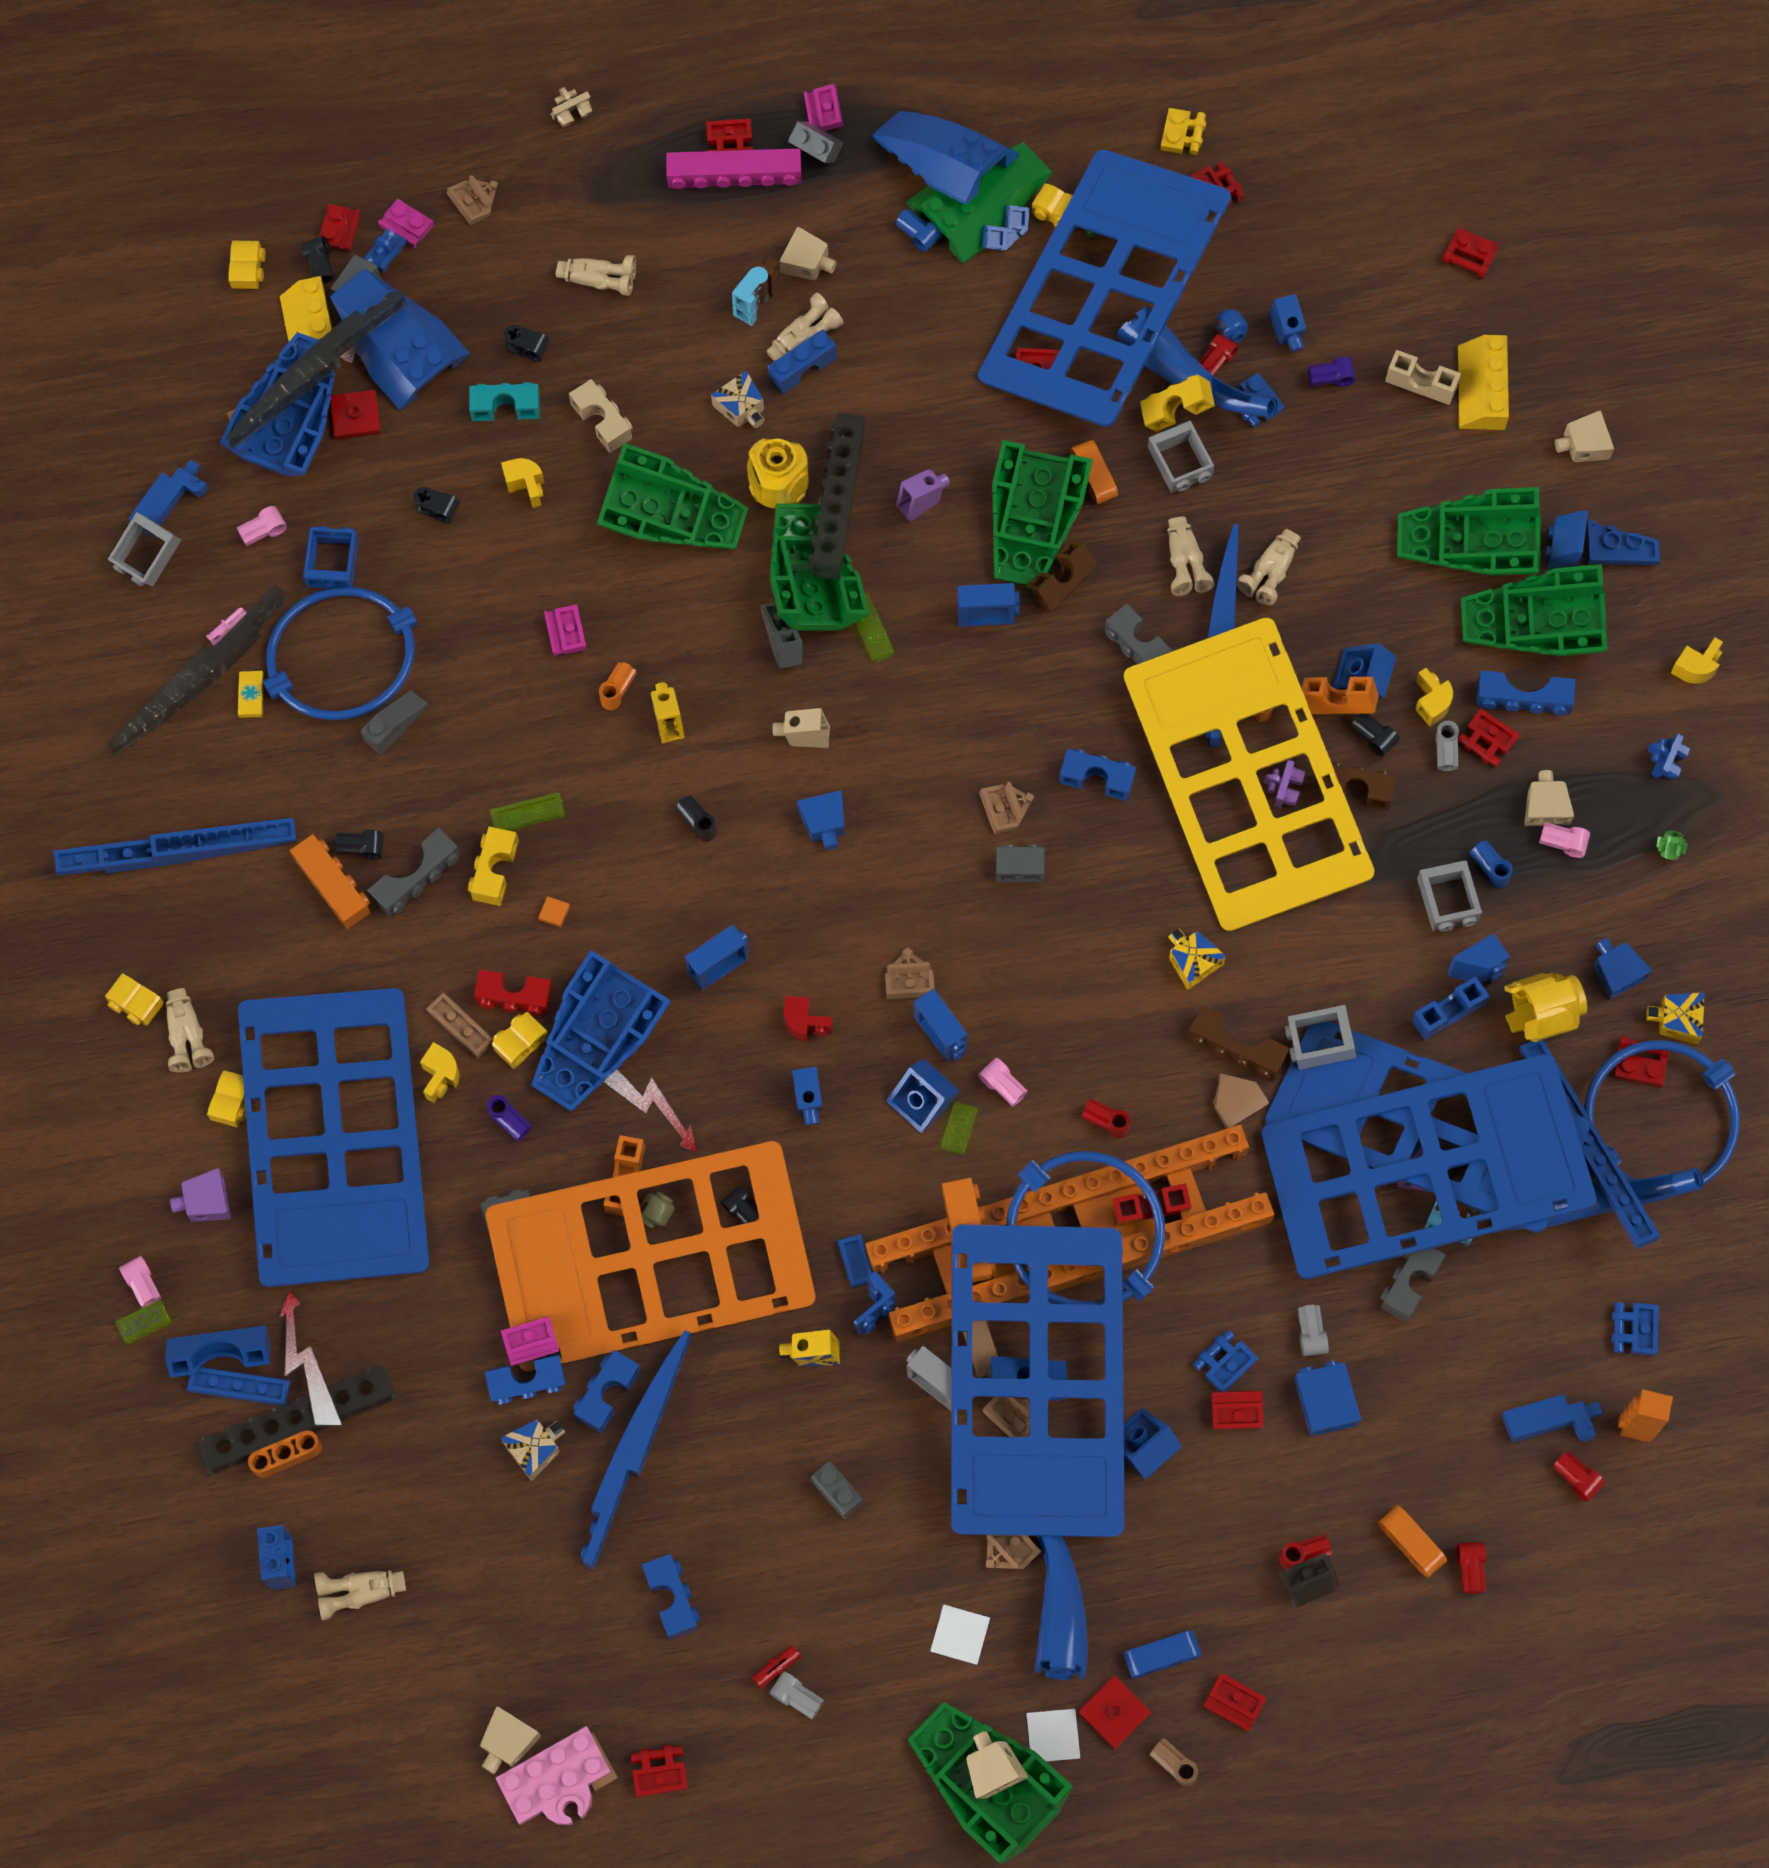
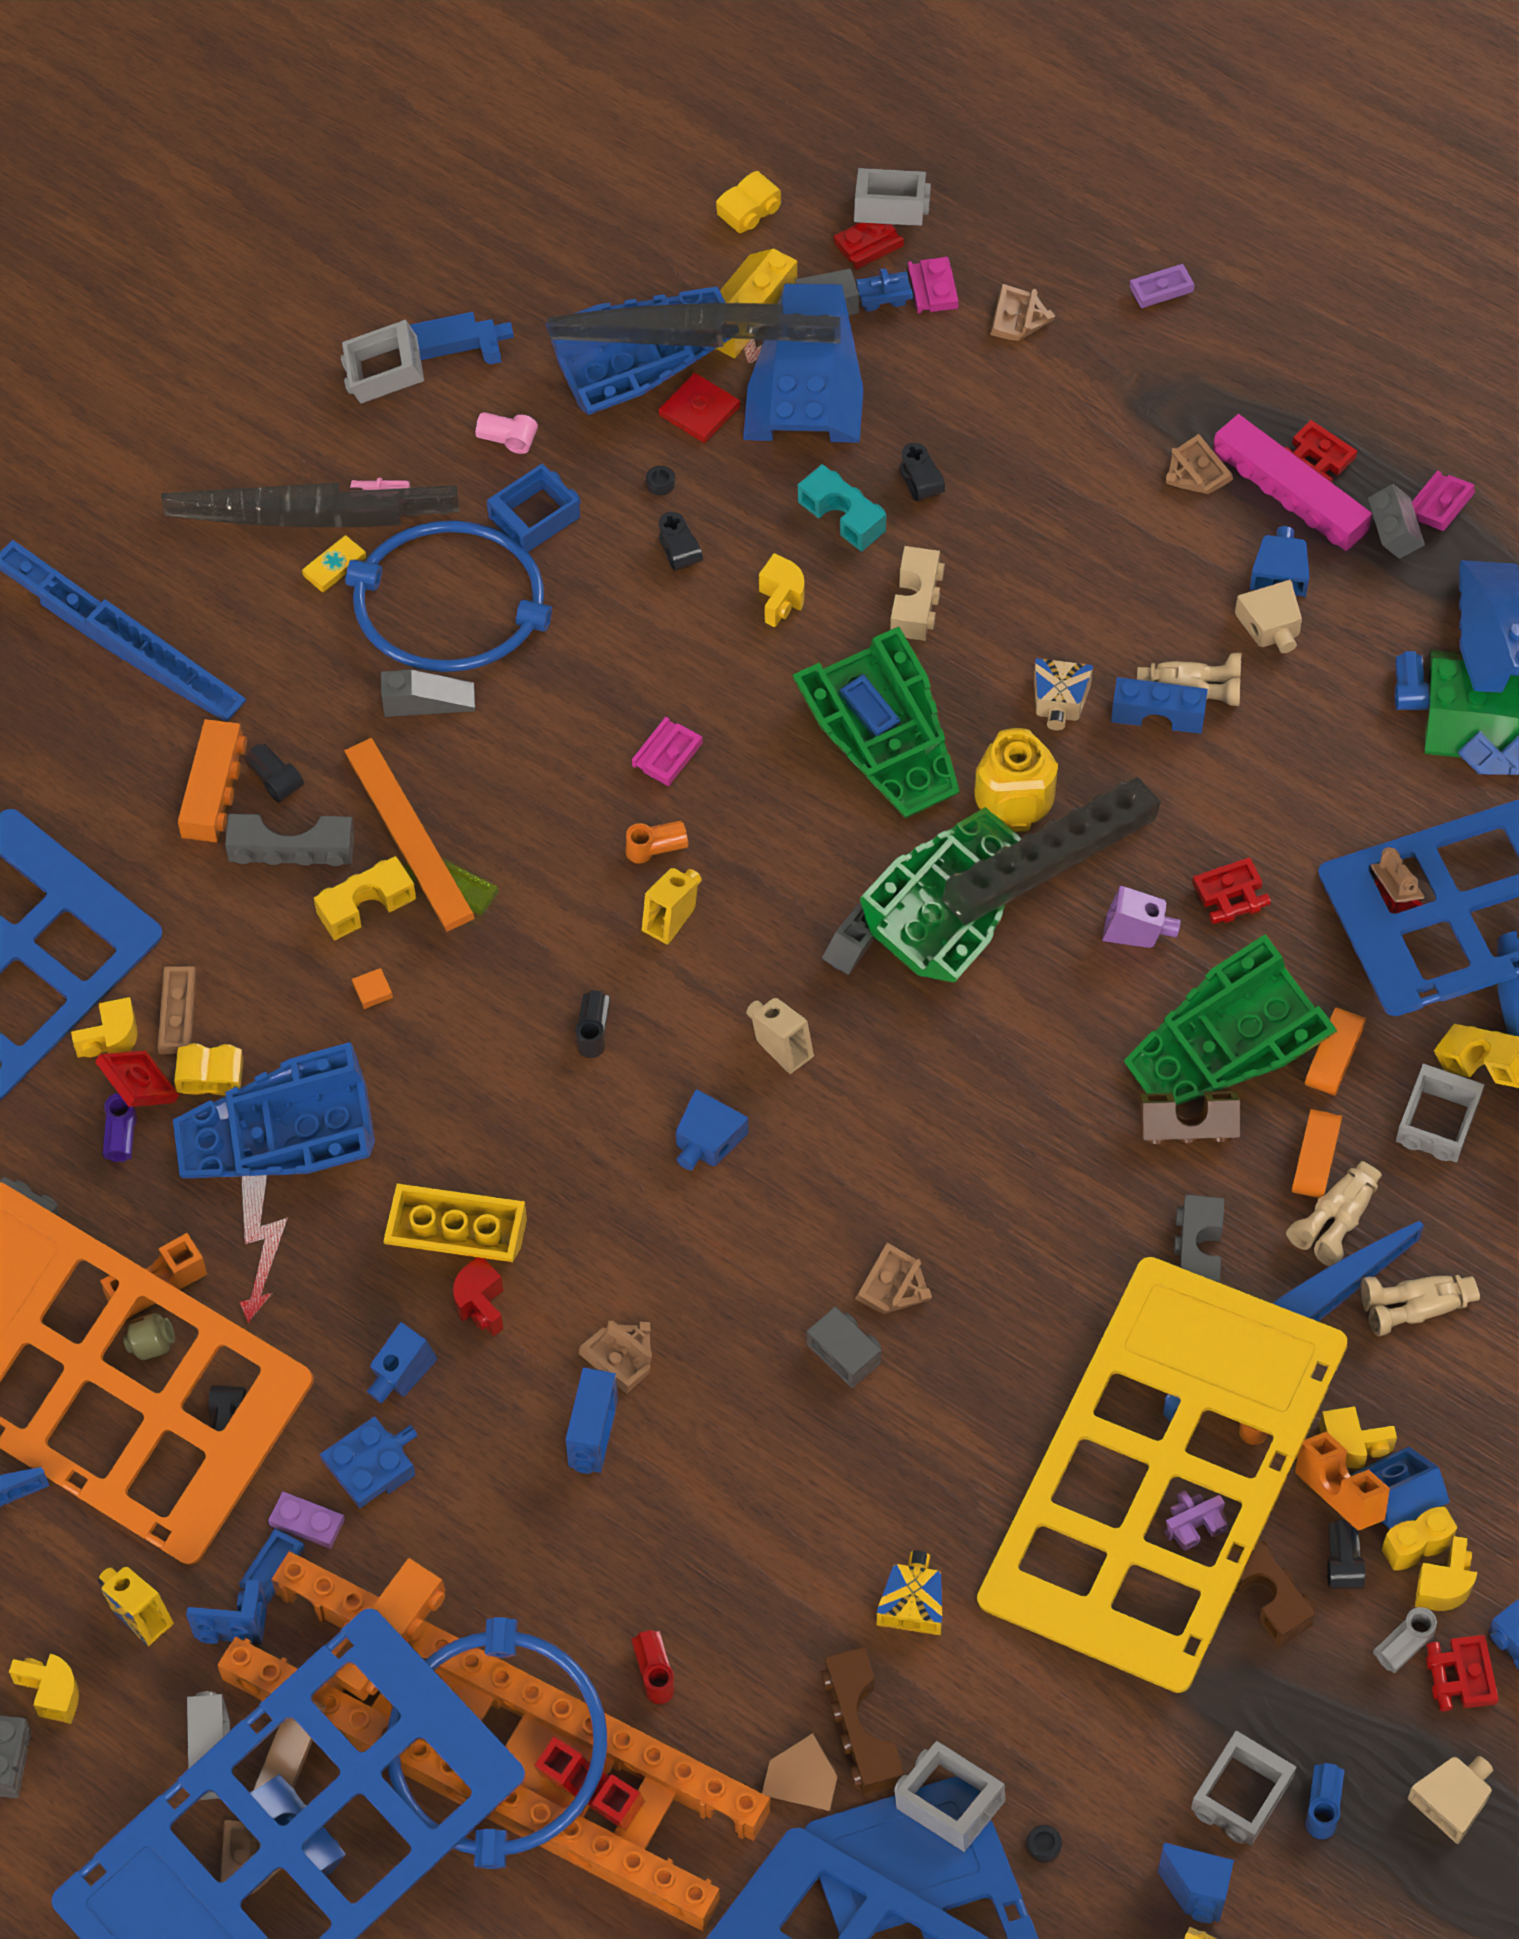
camera: 45 degrees right, 10 degrees down
(317, 254) = (819, 244): black piece -> none
(336, 198) = (891, 197): none -> light grey window
(381, 477) = (660, 480): none -> black tile
(477, 808) = (409, 835): none -> orange tile
(488, 1081) = (137, 1078): none -> red plate
(533, 998) = (265, 1043): red arch -> none
(537, 112) = (1162, 285): none -> medium lavender plate
(562, 111) = (1199, 301): tan hips -> none
(596, 272) = (1055, 466): tan piece -> none
(650, 504) = (869, 706): none -> blue tile
(672, 204) = (1197, 467): none -> medium nougat slope
(717, 957) = (461, 1161): blue window -> none
(753, 993) = (456, 1223): none -> yellow slope
(755, 290) = (1186, 602): medium azure hips -> none
(779, 221) = (1281, 560): none -> blue torso
(821, 1429) = (55, 1683): none -> yellow brick
(847, 1158) = (370, 1461): none -> blue plate
(847, 1221) = (306, 1520): none -> medium lavender plate
(874, 634) = (952, 1005): clear neon green tile -> none
(922, 1095) = (506, 1471): blue slope -> none
(942, 429) = (1227, 883): none -> red plate
(959, 1128) = (507, 1538): clear neon green tile -> none
(987, 604) = (1082, 1075): blue window -> none
(998, 1077) = (595, 1527): bright pink piece -> none
(1033, 348) = (1397, 877): none -> medium nougat hinge
(1079, 766) = (1005, 1310): blue arch -> none
(1143, 536) = (1316, 1153): none -> orange beam
(1311, 667) = (1345, 1429): none -> yellow brick
(1384, 1016) = (1044, 1843): none -> black tile
(1401, 689) = (1425, 1537): none -> yellow brick
(1461, 1003) = (1135, 1906): blue arch -> none
(1572, 840) = (1436, 1858): bright pink piece -> none

